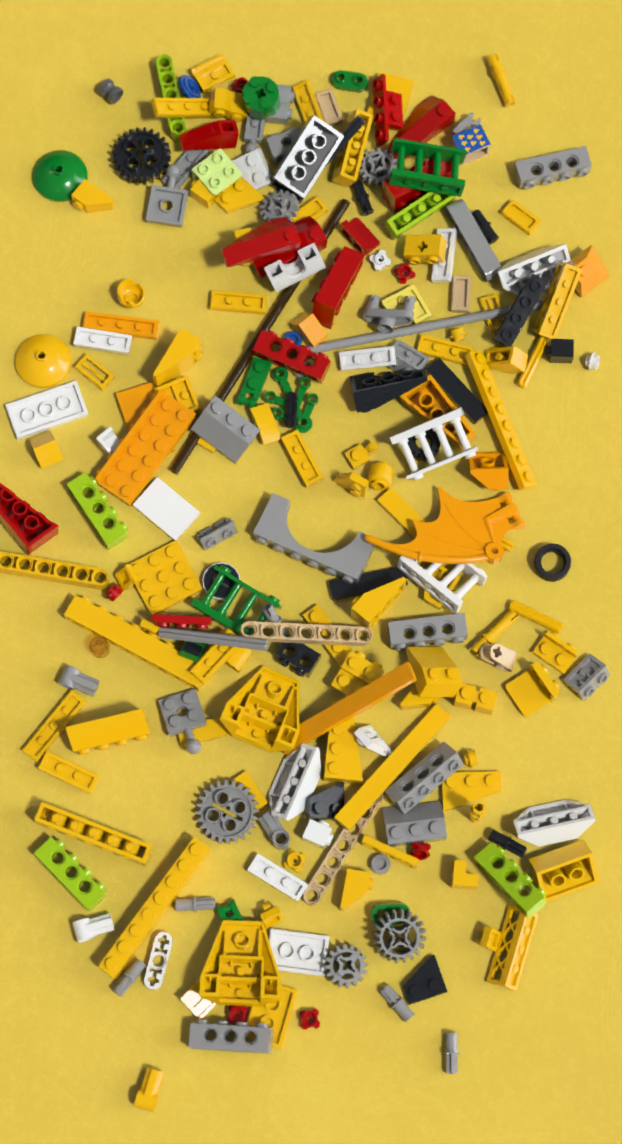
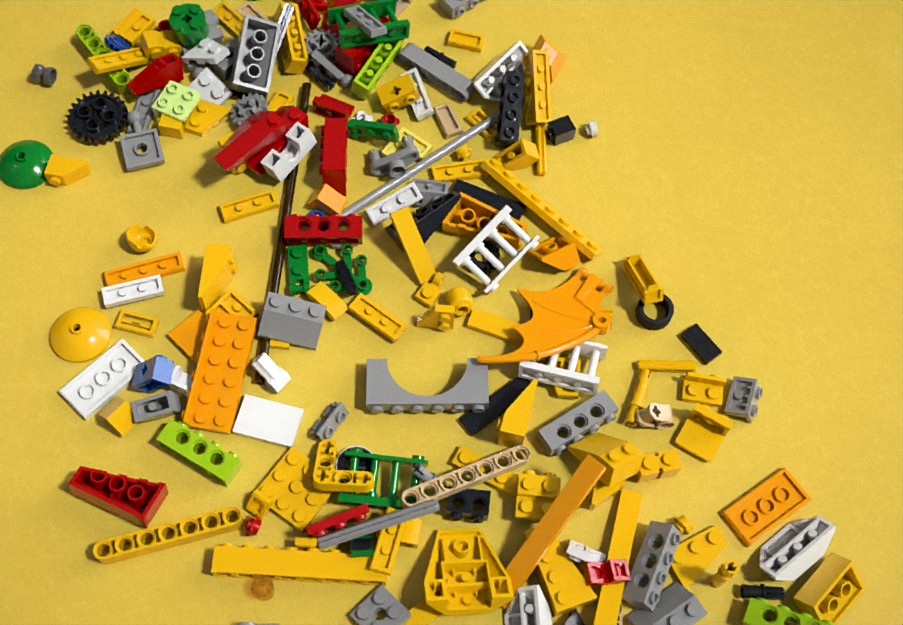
camera: 30 degrees left, 10 degrees down
(78, 455) = (156, 406): none -> light grey slope
(87, 426) = (153, 374): none -> blue brick
(188, 471) = (274, 376): none -> white piece
(195, 581) = (333, 476): none -> yellow beam
(265, 132) = (206, 52): none -> white wing
(362, 406) = (413, 244): none -> yellow tile
(375, 196) = (345, 79): none -> light grey plate
(381, 765) = (606, 573): none -> red slope
(383, 277) = (373, 130): none -> green plate
(421, 167) = (365, 21): none -> light grey tile
(553, 777) = (766, 506): none -> light orange tile
(555, 529) = (642, 279): none -> yellow container
(578, 611) = (701, 344): none -> black tile

